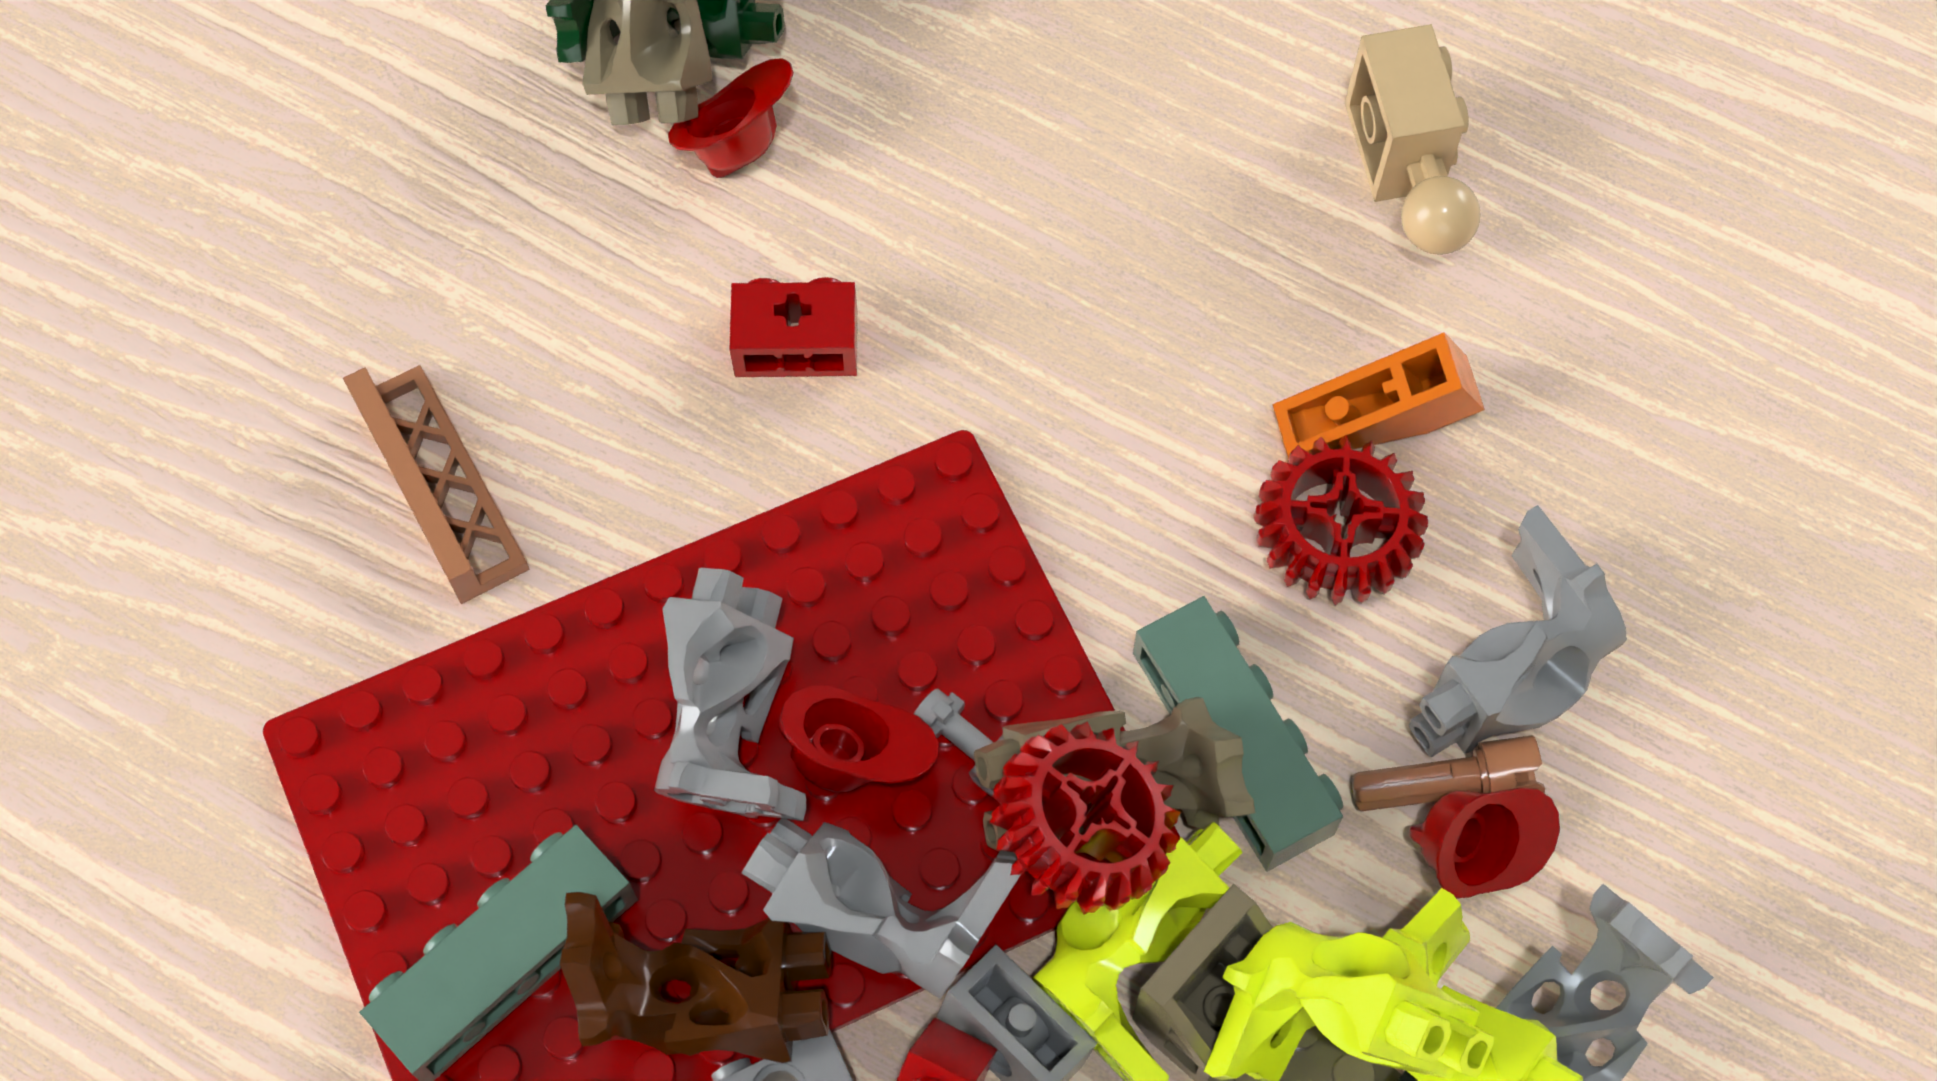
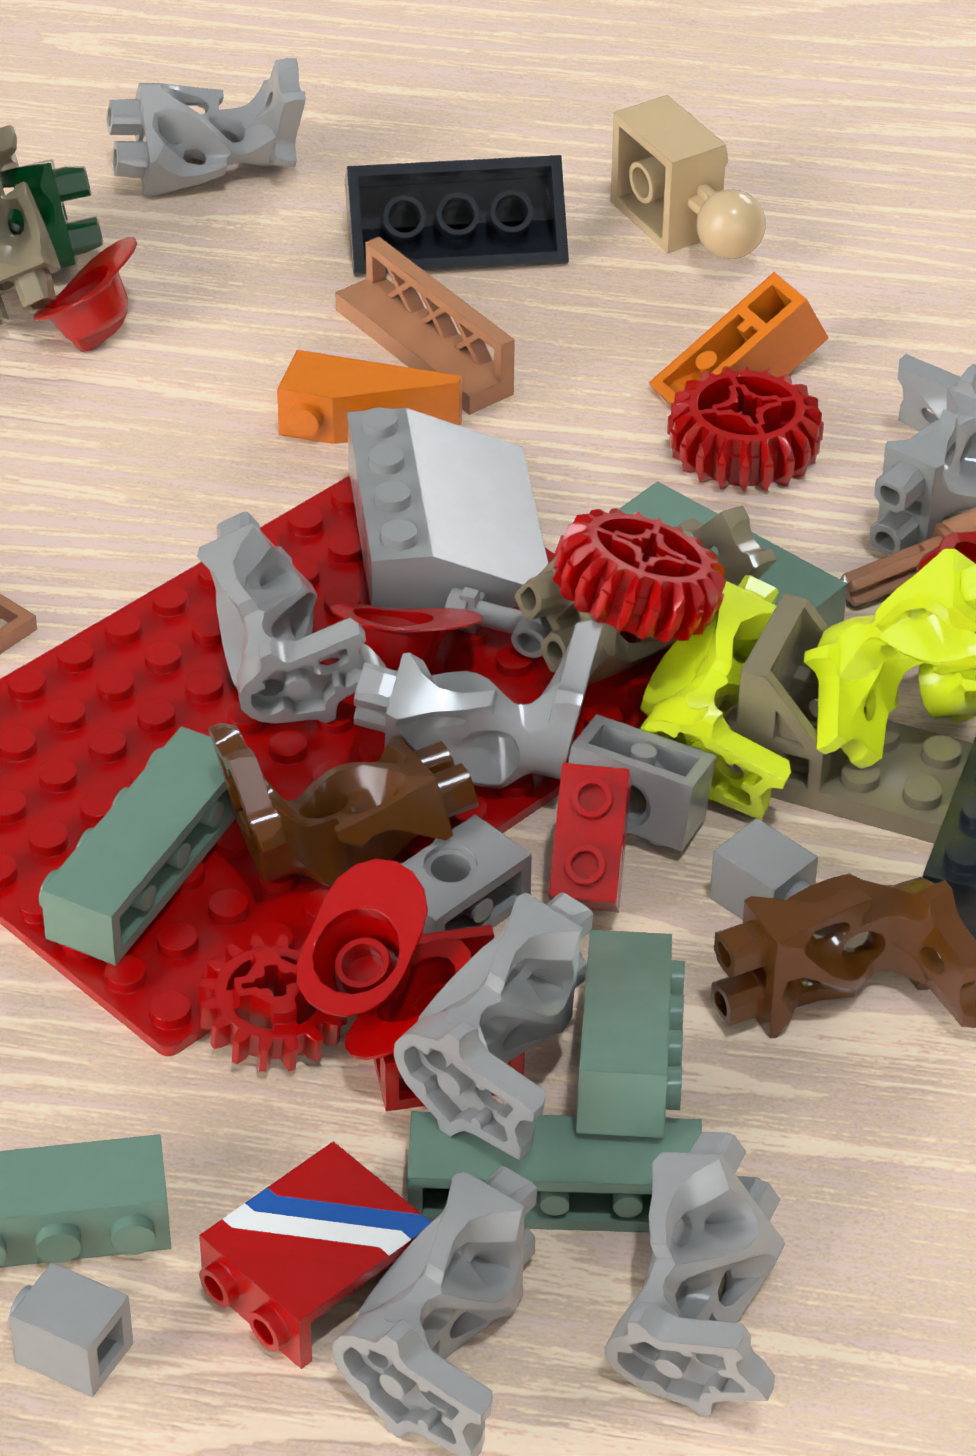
camera: 20 degrees left, 25 degrees down
(770, 347) = (209, 415): red brick -> none
(954, 353) = (325, 387): none -> orange slope
(969, 570) = (440, 510): none -> slope
(1065, 267) = (428, 337): none -> nougat fence
(1159, 100) = (460, 212): none -> black slope

